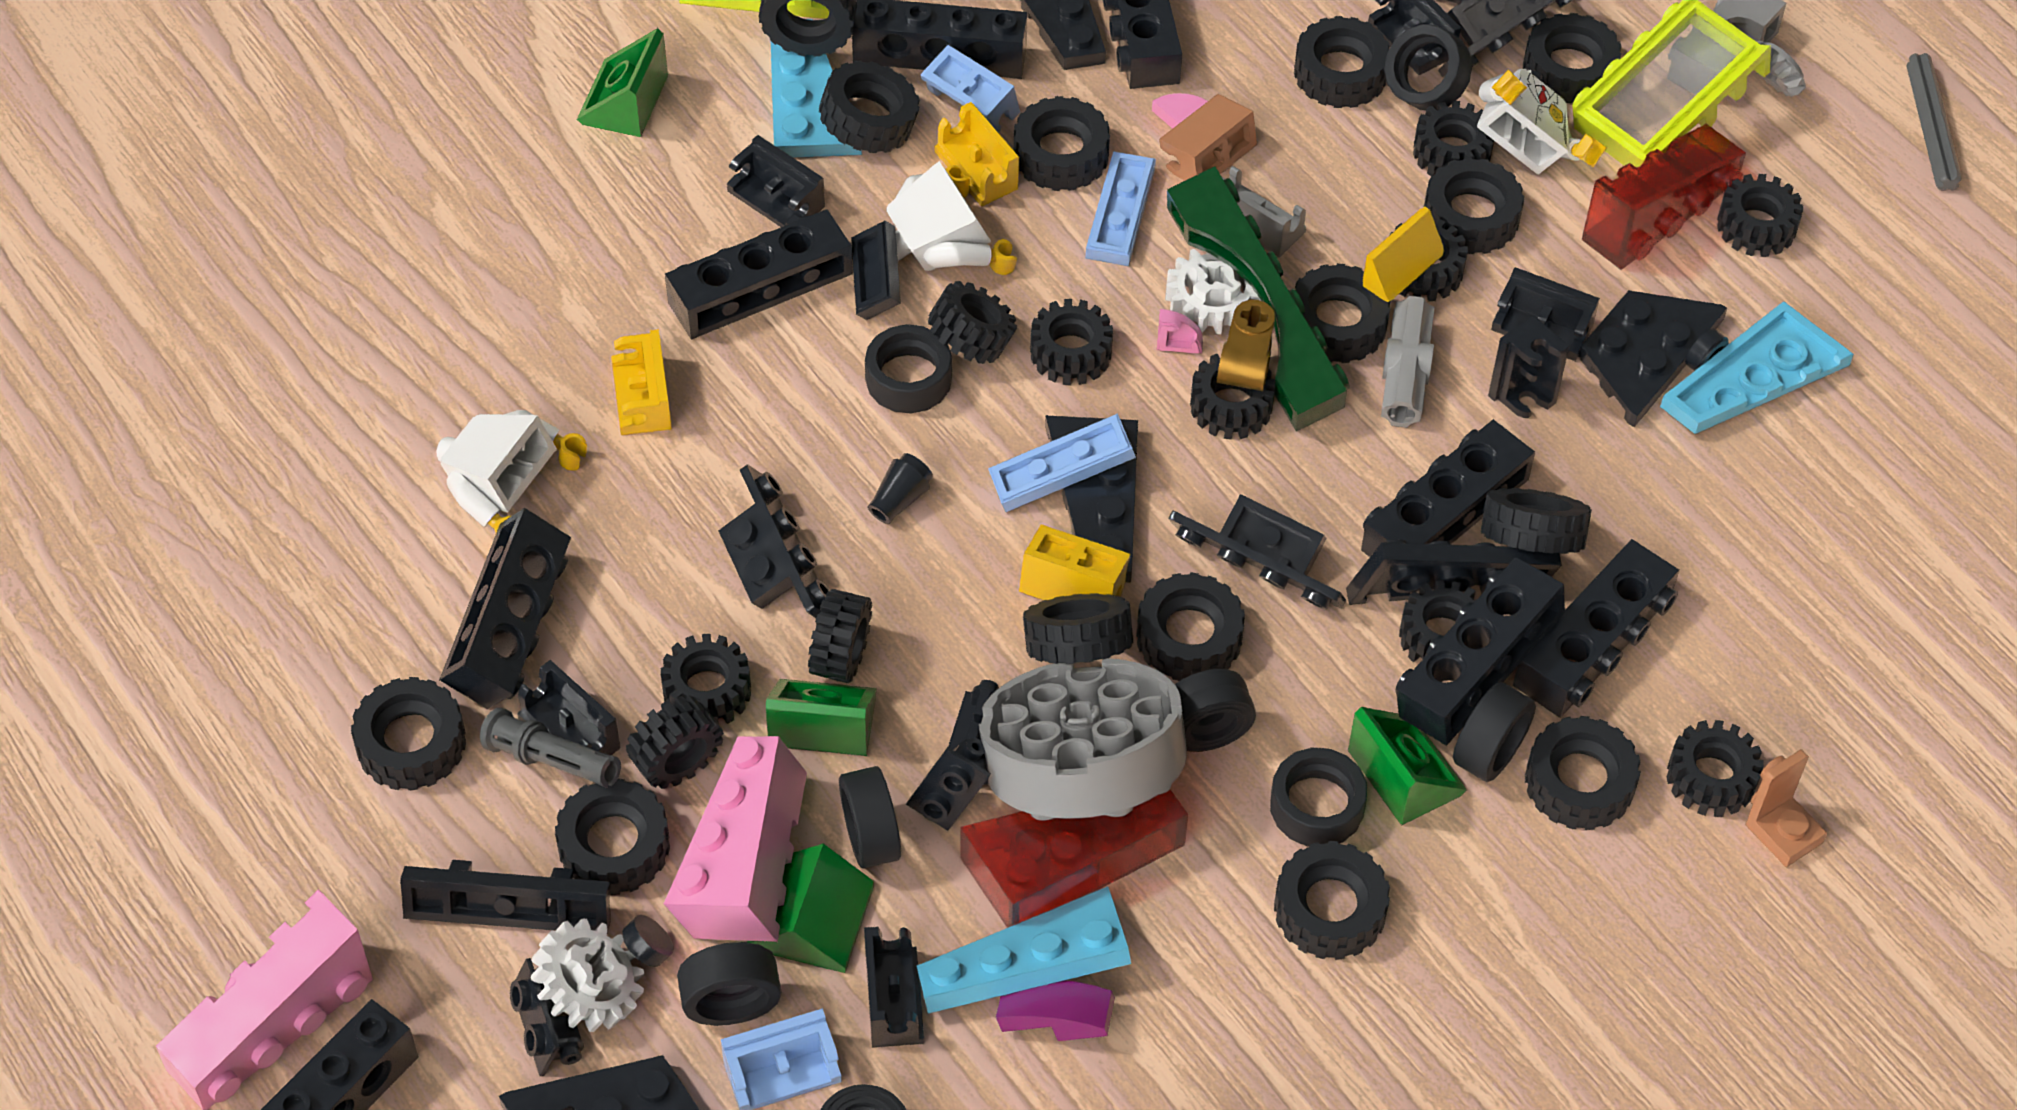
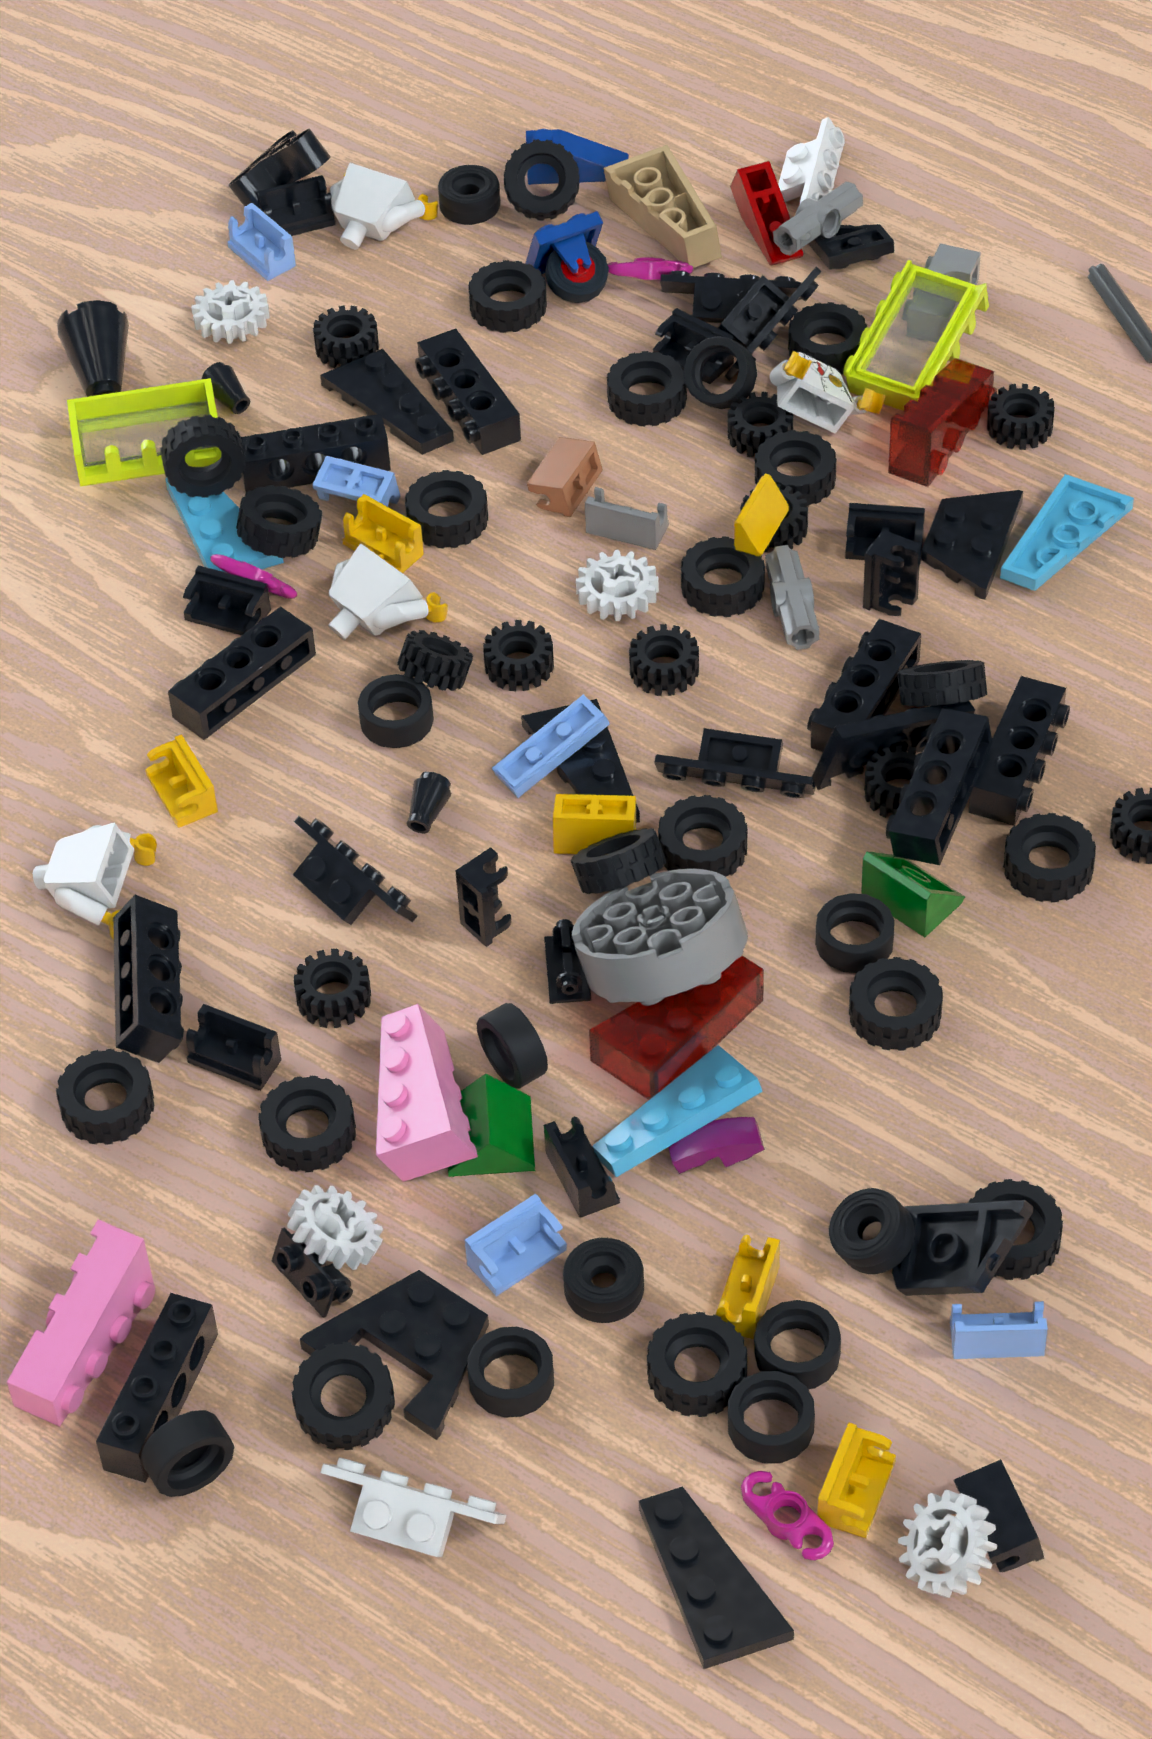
camera: 15 degrees left, 5 degrees down
(503, 899) = (238, 1193): black hinge -> none
(533, 743) = (213, 1072): dark grey pin -> none
(627, 87) = (67, 560): green slope -> none
(647, 941) = (370, 1190): black tile -> none
(674, 742) = (330, 1036): black tyre -> none
(729, 983) = (444, 1183): black tyre -> none
(818, 162) = (251, 572): none -> dark pink piece
(821, 716) = (440, 987): green slope -> none
(840, 636) = (430, 921): black tyre -> none
(875, 270) = (338, 644): black tile -> none
(909, 622) = (479, 896): none -> black hinge
(951, 783) = (567, 1002): black hinge -> none
(1120, 208) = (514, 546): light blue tile -> none
(1176, 107) = (528, 458): bright pink tile -> none
(1178, 333) = (601, 626): bright pink tile -> none
(1213, 222) = (603, 529): dark green arch -> none
(1215, 709) = (755, 886): black tyre -> none
(1248, 346) = (667, 615): pearl gold piece -> none
(1494, 731) = (972, 844): black tyre -> none
(1705, 348) = (1019, 524): black tile -> none
(1784, 72) = (1001, 306): light grey gear -> none

